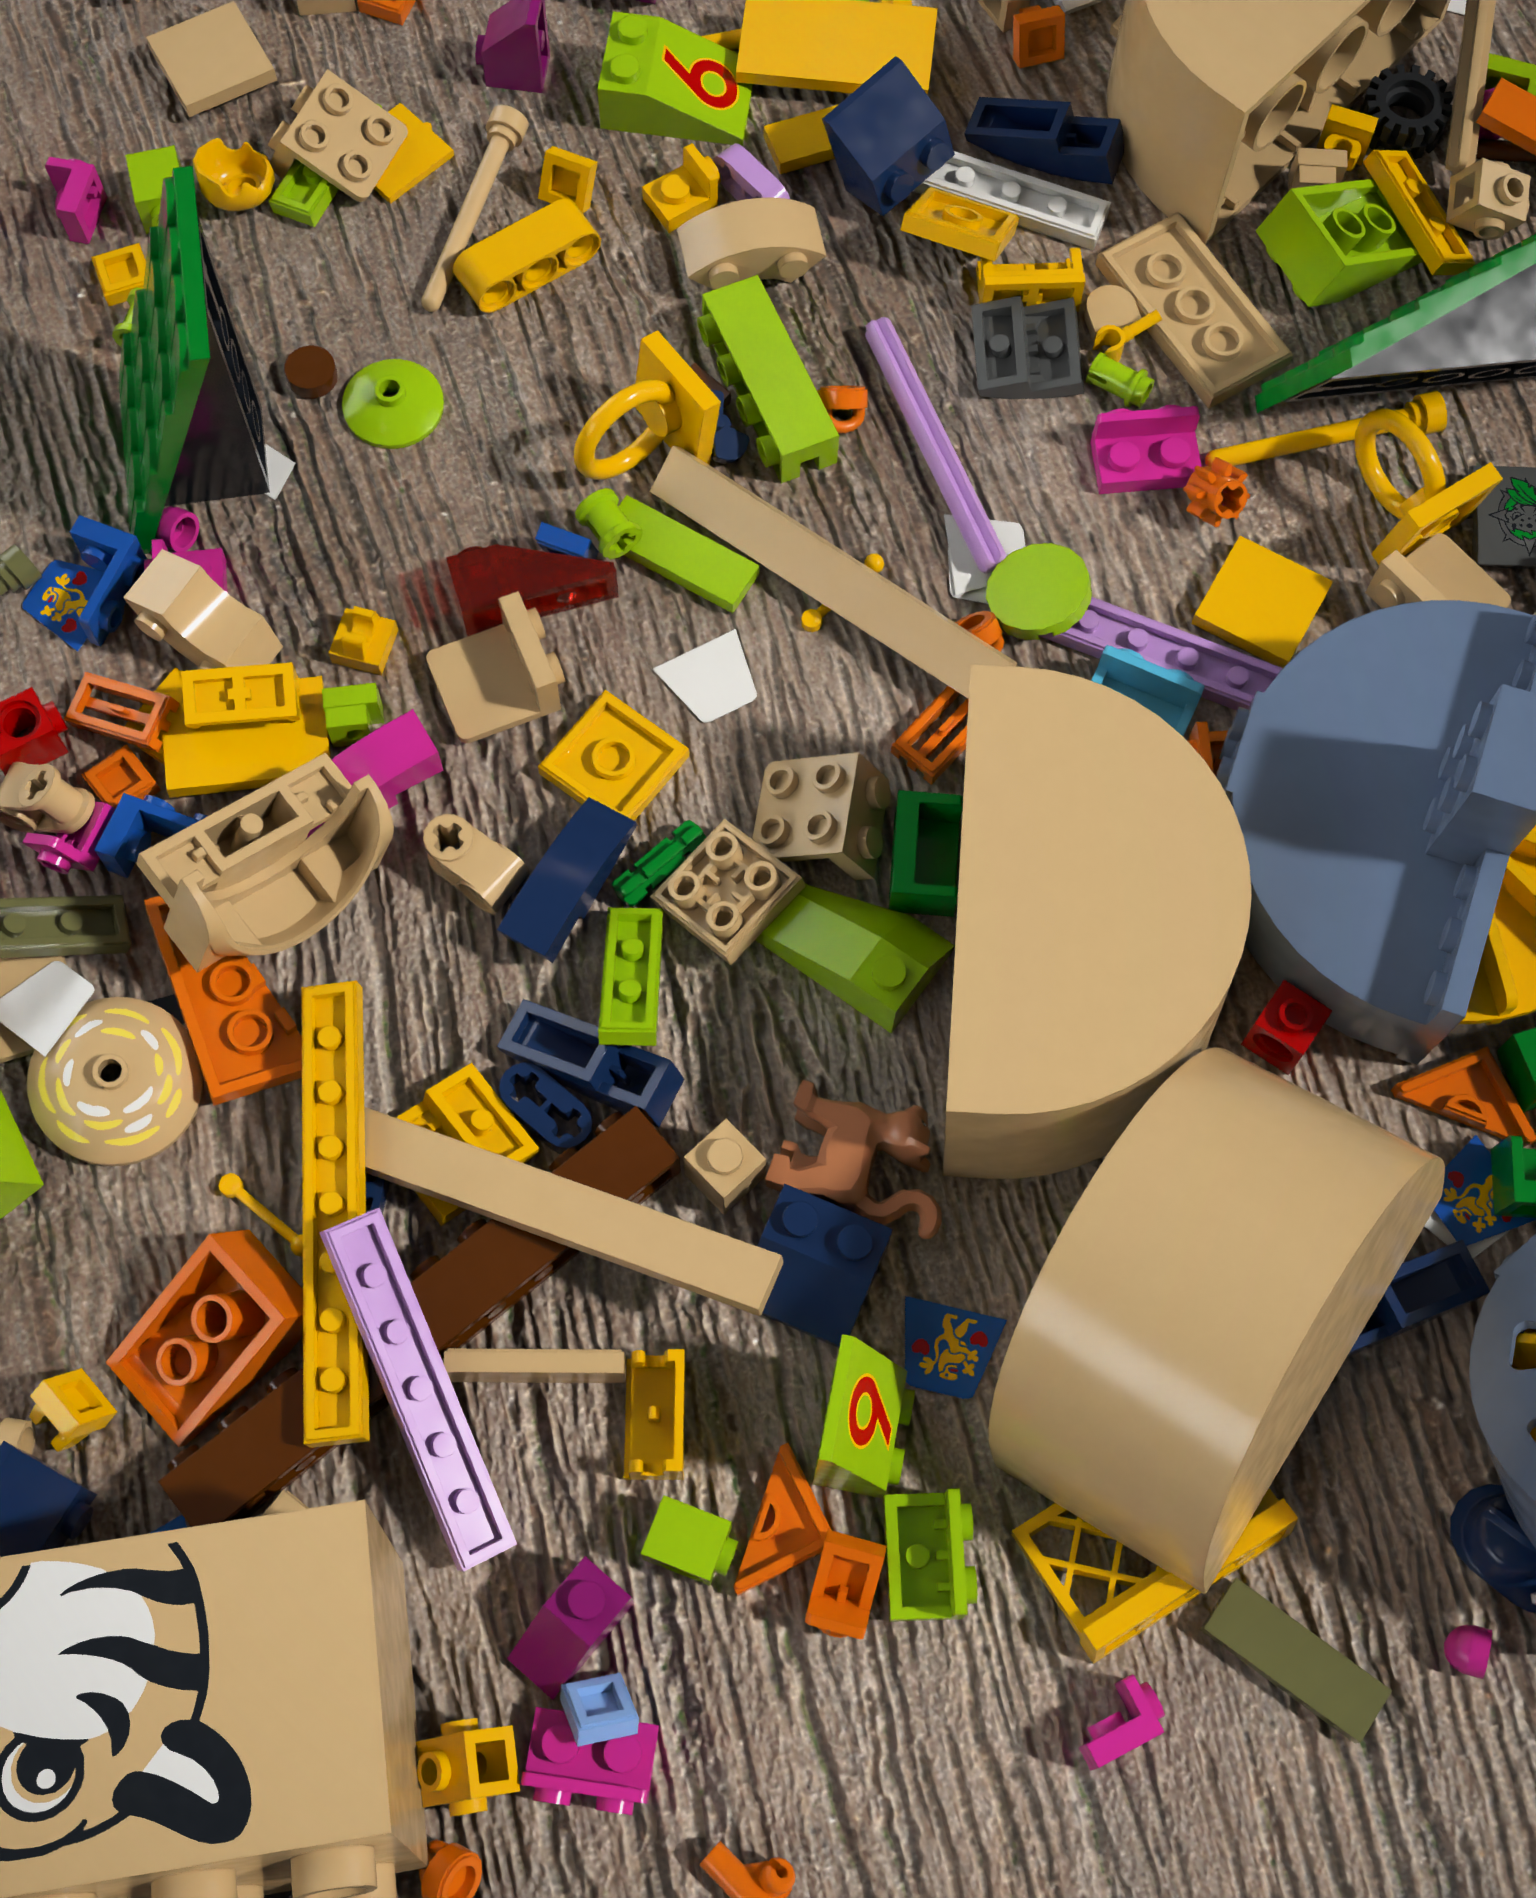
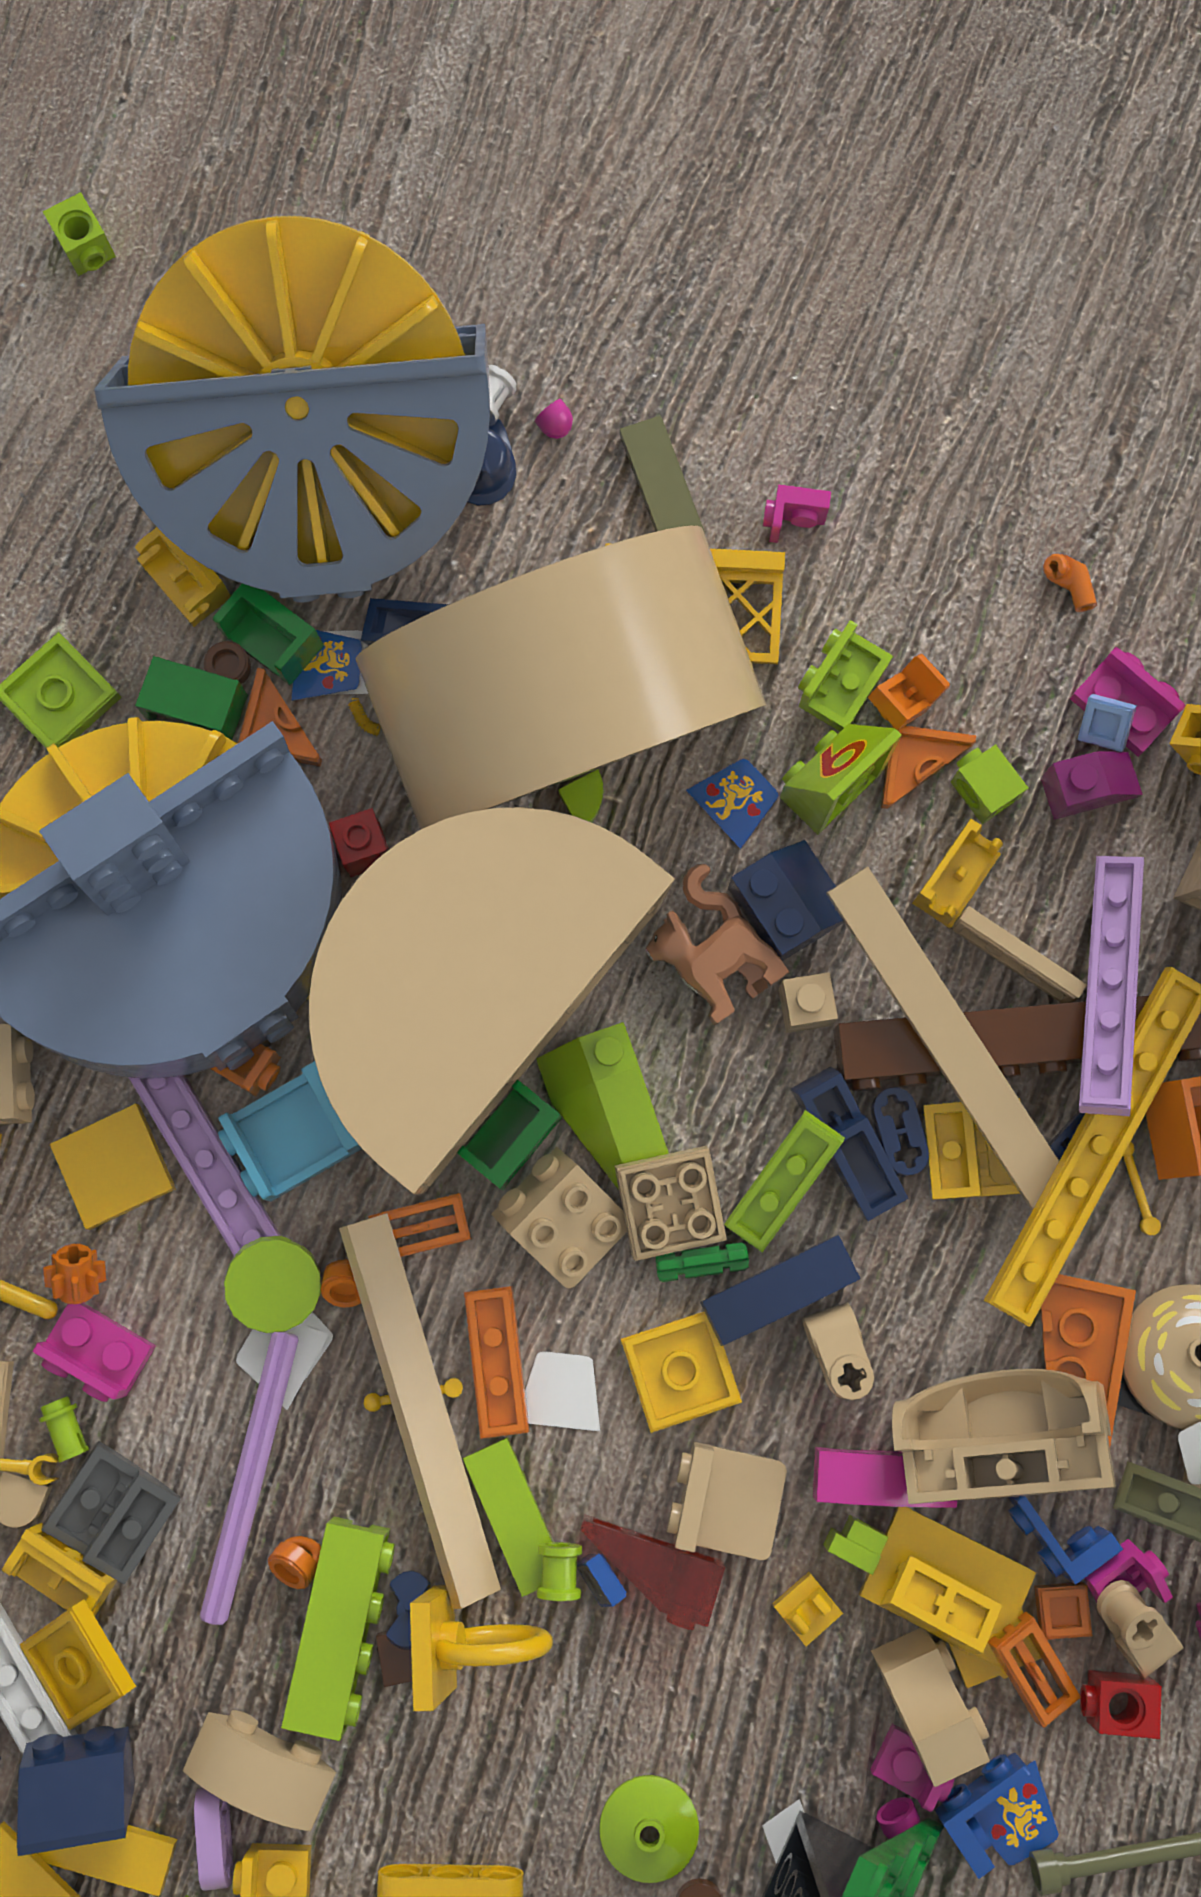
camera: 140 degrees left, 10 degrees up
(789, 662) = (496, 1362): none -> orange tile

